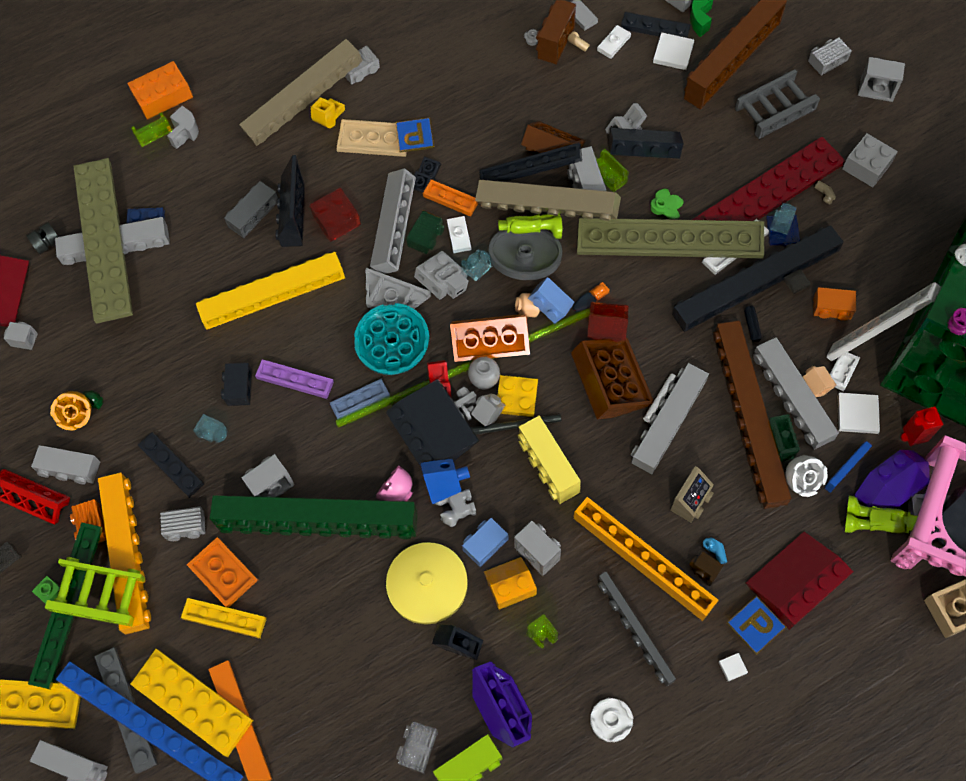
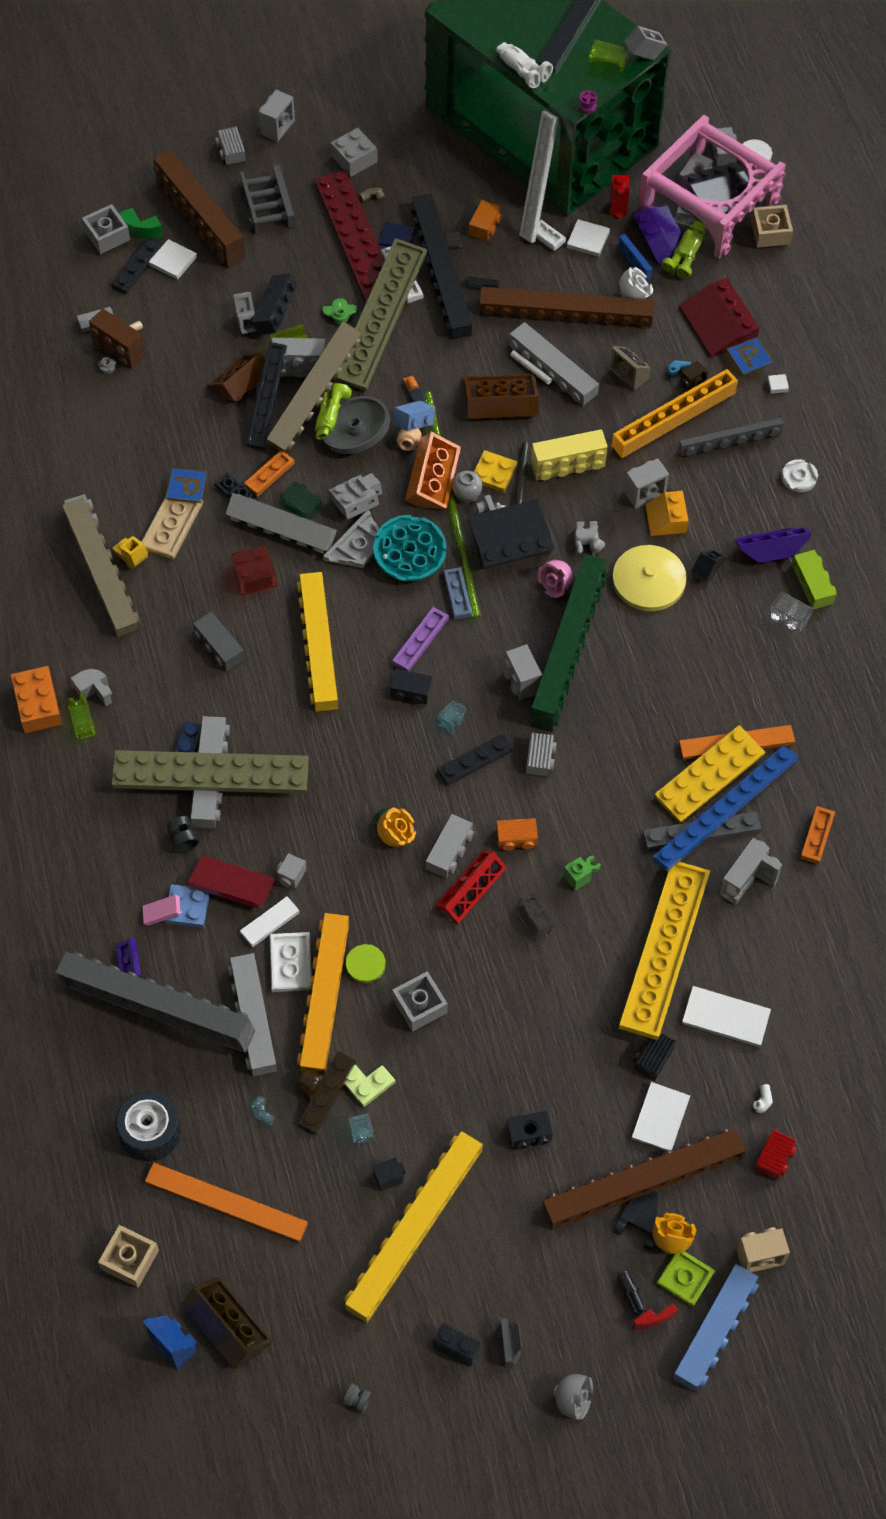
camera: 80 degrees left, 5 degrees down
(60, 624) = (598, 852): dark green plate -> none
(101, 612) = (615, 818): lime fence -> none
(122, 546) = (555, 808): light orange brick -> none
(222, 572) = (596, 731): orange plate -> none
(223, 618) = (639, 737): yellow plate -> none
(291, 205) = (233, 597): black slope -> none
(439, 371) = (457, 522): red slope -> none
(443, 478) = (564, 535): blue torso -> none
(459, 234) = (311, 476): white plate -> none
(477, 264) = (355, 464): clear light blue brick -> none
(485, 541) = (626, 524): medium blue brick -> none
(488, 409) = (504, 490): light grey brick -> none
(540, 630) = (717, 496): clear neon green hinge -> none
(608, 321) = (450, 378): clear red brick -> none
(614, 42) = (141, 302): white plate -> none
(783, 218) = (390, 227): clear light blue brick -> none
(784, 437) = (598, 286): clear green brick -> none
(795, 393) = (559, 272): light grey brick -> none
(819, 380) = (554, 252): light nougat brick -> none

